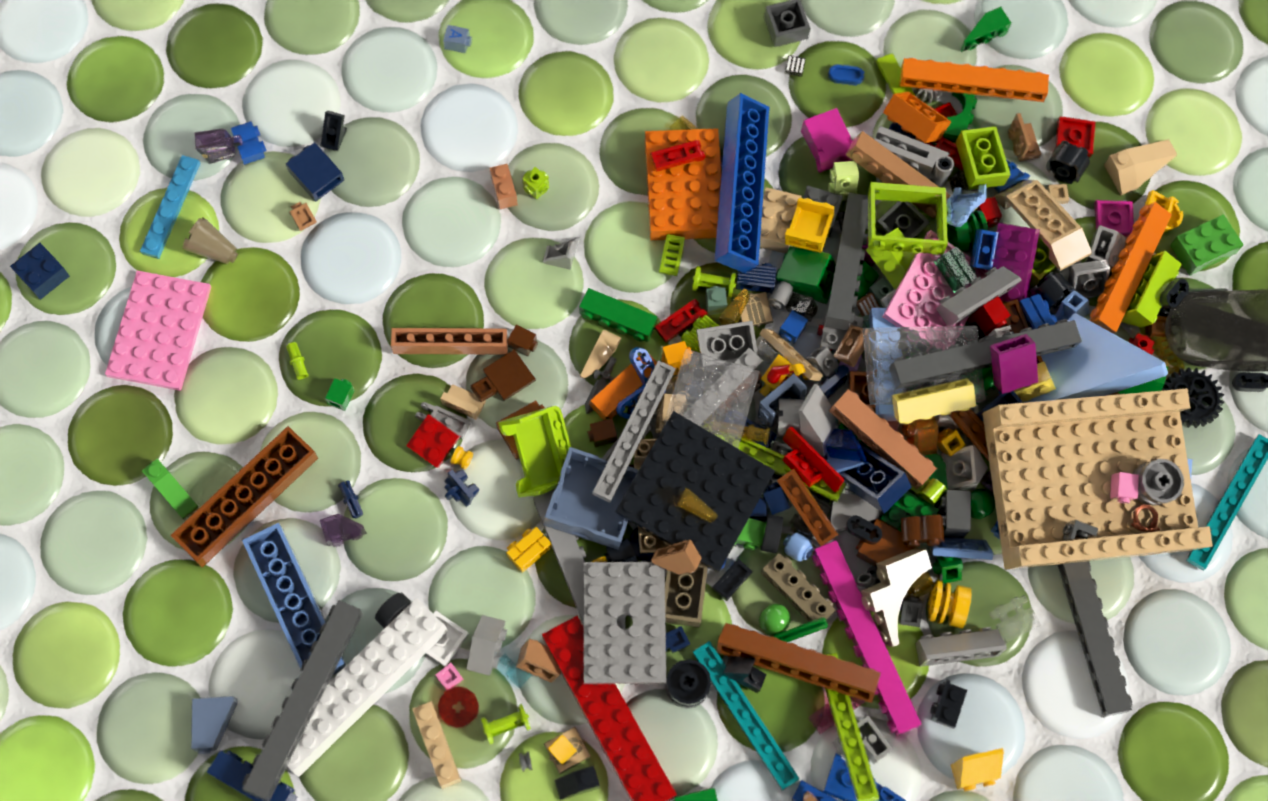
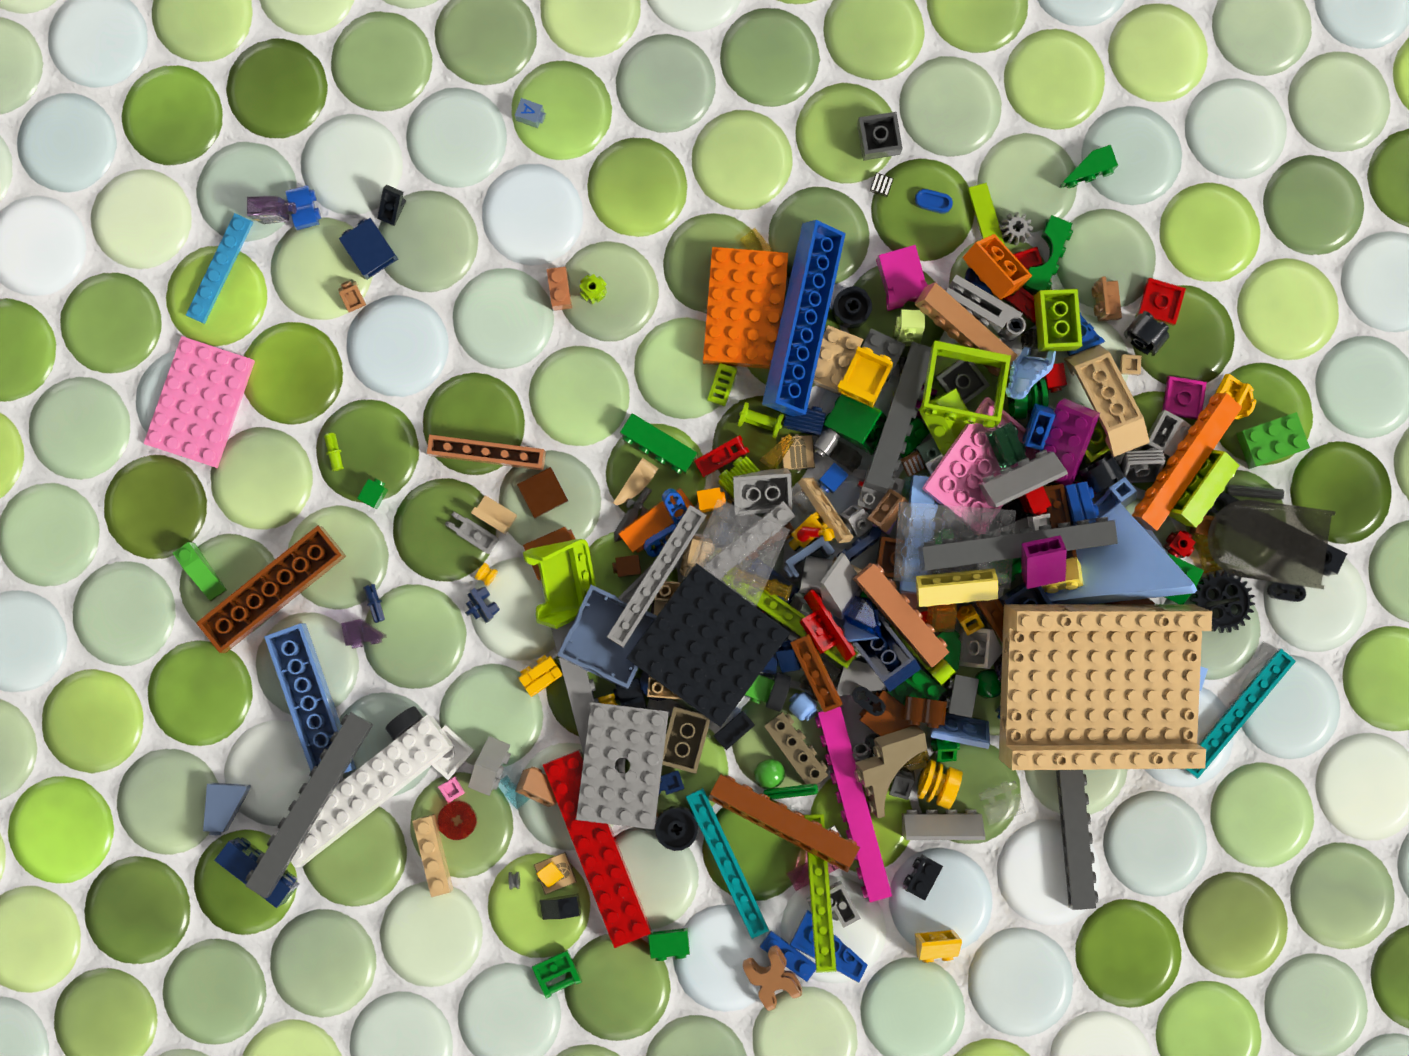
camera: 10 degrees right, 15 degrees up
(40, 271) = (84, 326): dark blue brick -> none
(210, 243) = (256, 317): dark tan cone -> none
(433, 441) = (460, 554): red plate -> none
(483, 389) = (515, 504): reddish brown tile -> none
(506, 724) = (499, 844): lime hose -> none
(522, 340) = (560, 459): reddish brown brick -> none
(561, 254) = (611, 368): light grey slope -> none
(677, 155) = (740, 281): red plate -> none
(678, 557) = (681, 710): medium nougat slope -> none
(693, 504) = (701, 661): clear yellow slope -> none
(715, 300) = (759, 439): sand green brick -> none
(743, 672) = (732, 823): black slope -> none
(785, 171) = (842, 303): none -> black brick
(974, 80) = (1065, 230): orange brick -> none
(1079, 529) = (1071, 735): dark grey bracket -> none
(1124, 487) = (1129, 700): bright pink brick -> none
(1138, 164) = (1220, 342): tan wedge -> none
(1153, 524) = (1151, 738): copper piece -> none
(1159, 482) = (1163, 699): flat silver wheel -> none
(1176, 296) = (1224, 497): black beam -> none

